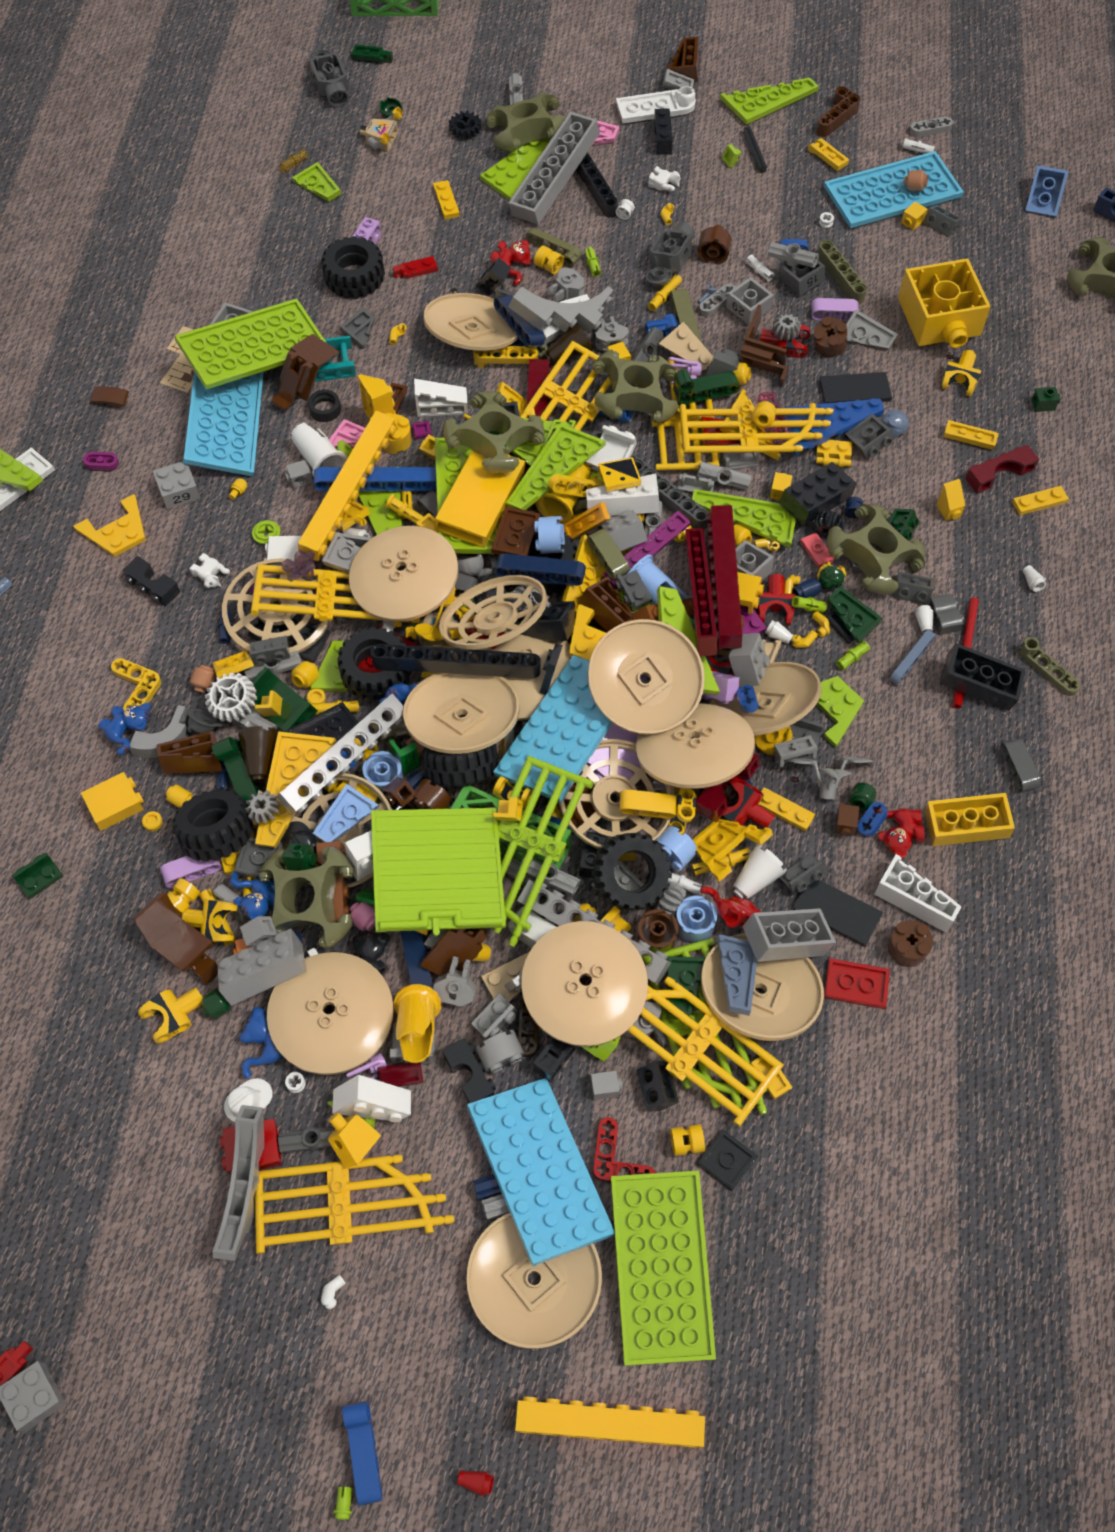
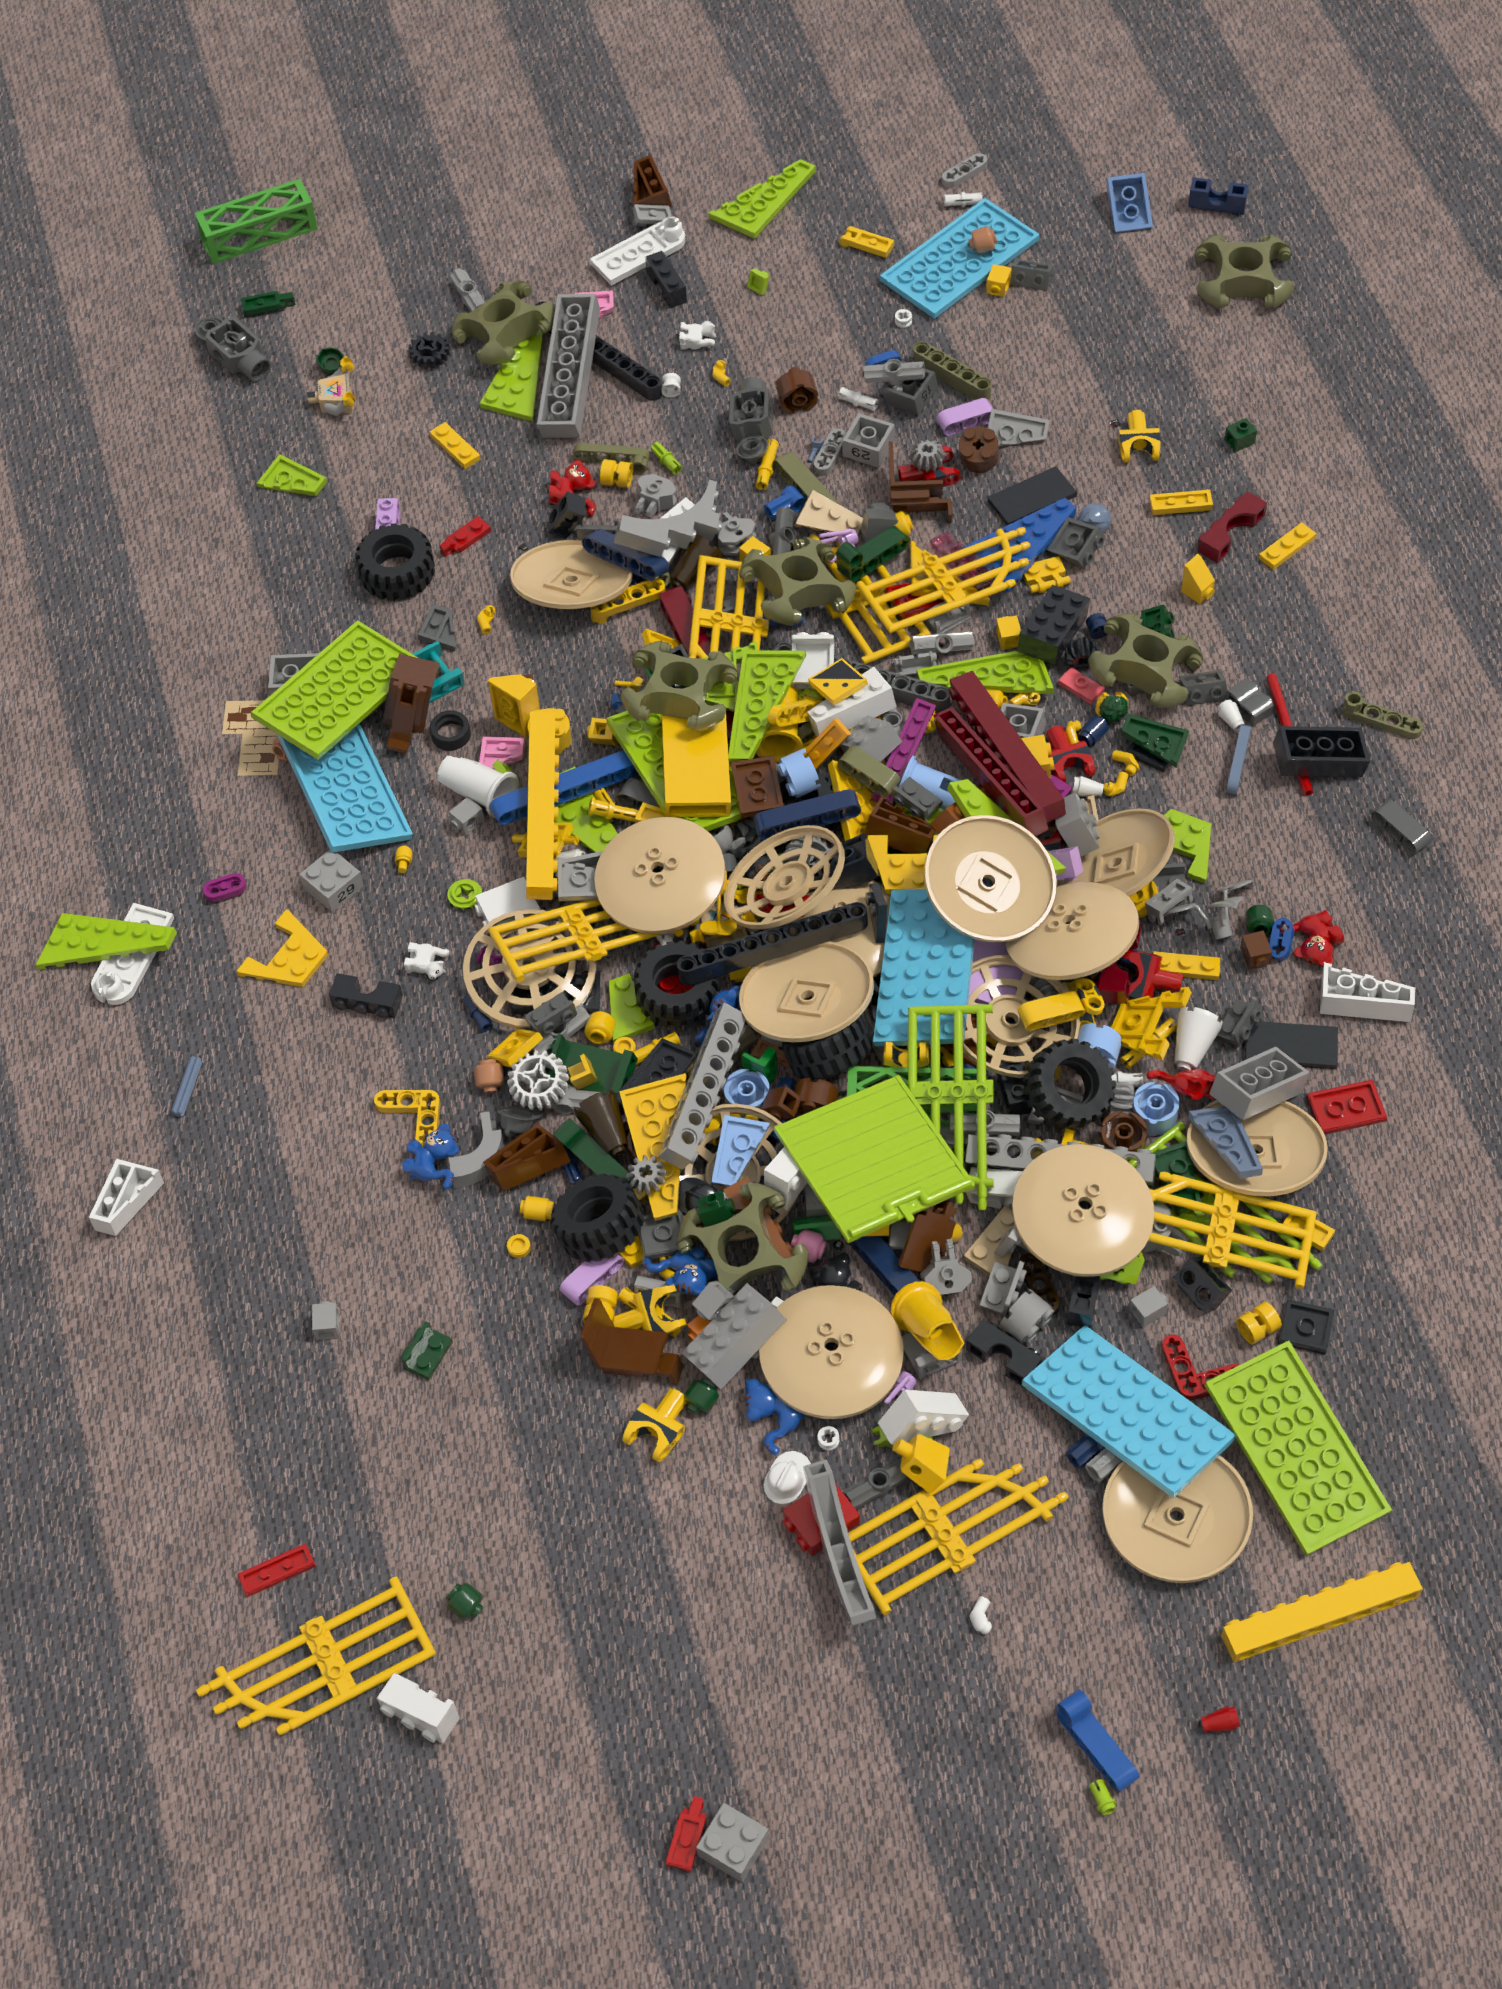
camera: 20 degrees left, 5 degrees down
(109, 395) = (191, 810): reddish brown slope -> none
(112, 800) = (464, 1241): yellow brick -> none
(293, 160) = (246, 462): clear yellow pin -> none
(300, 567) = (539, 911): hips -> none
(401, 1074) = (938, 1380): dark red tile -> none
(421, 430) = (577, 717): magenta tile -> none
(439, 399) = (580, 674): white wedge -> none
(509, 810) = (916, 1070): yellow panel -> none
(747, 699) = (1099, 862): blue beam -> none
(755, 150) = (780, 264): black axle -> none
(764, 414) = (956, 559): yellow head -> none
(809, 604) = (1104, 745): lime pin -> none
(845, 107) = (859, 179): reddish brown beam -> none
(852, 655) = (1175, 782): lime pin -> none
(910, 933) = (1380, 1045): reddish brown brick -> none
(944, 303) = (1085, 368): yellow brick -> none
(969, 819) = (1378, 901): yellow brick -> none
(1034, 579) = (1322, 631): white cone -> none

